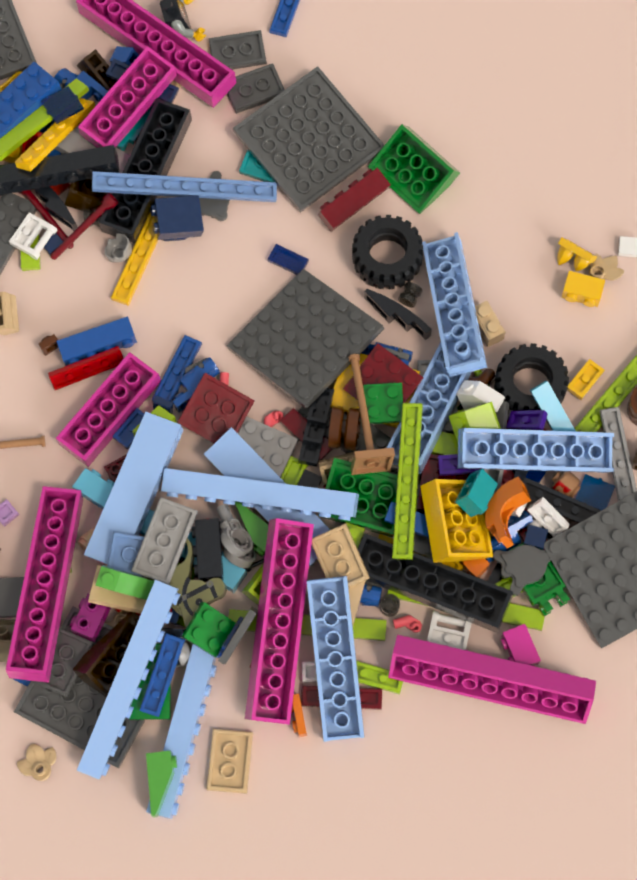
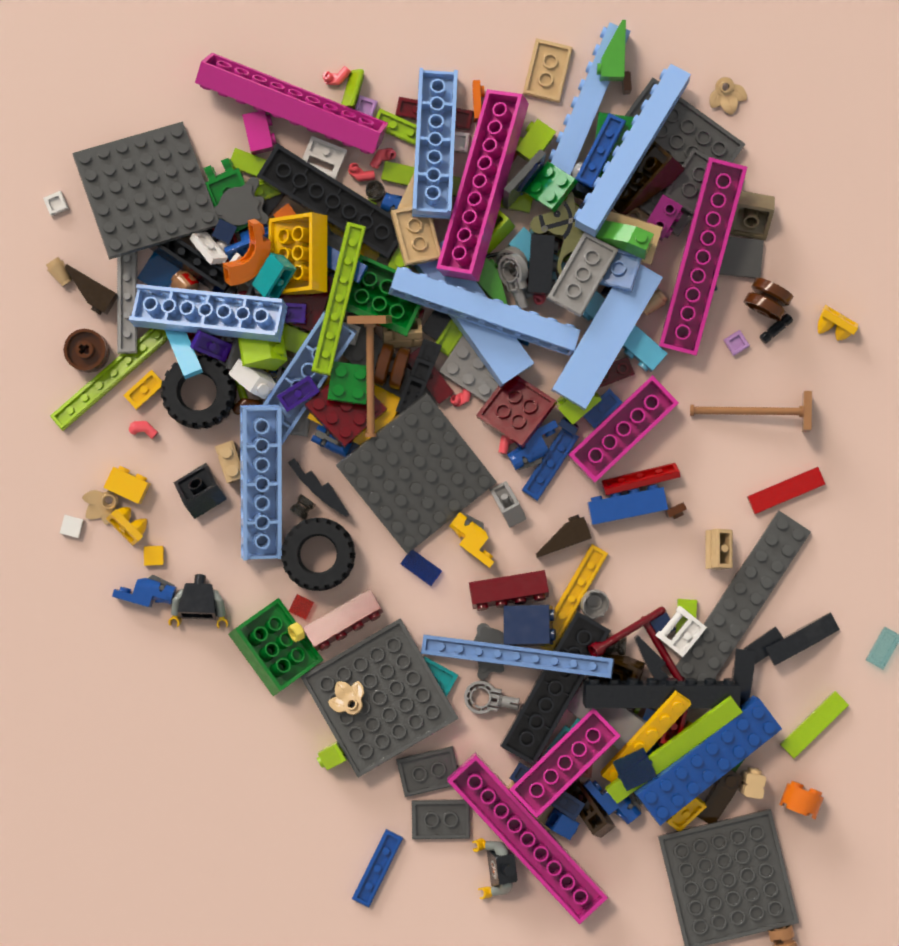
camera: 175 degrees left, 15 degrees up
(142, 754) = (626, 83): none -> reddish brown tile
(150, 306) = (568, 535): none -> dark brown slope
(201, 157) = (502, 701): none -> light grey pin
(202, 248) = (508, 590): none -> dark red brick
(213, 326) = (508, 504): none -> light grey slope
(232, 682) = (537, 138): none -> lime brick
(242, 290) = (474, 536): none -> yellow plate
(339, 133) = (345, 695): none -> tan plate
(345, 82) = (331, 756): none -> lime slope
(388, 645) = (382, 155): none -> coral arm
(396, 181) = (296, 632): none -> light yellow tile
(396, 208) = (301, 606): none -> clear red tile
(414, 694) = (366, 105): none -> lavender tile
(431, 709) = (353, 88): none -> lime slope
(432, 387) = (298, 393): none -> dark purple plate
(449, 718) = (336, 78): none -> coral arm
(493, 194) = (198, 602): none -> black torso
(512, 294) = (200, 491): none -> black slope
(544, 232) = (153, 555): none -> yellow tile
(545, 197) = (148, 590): none -> blue plate
(580, 345) = (142, 426): none -> coral arm

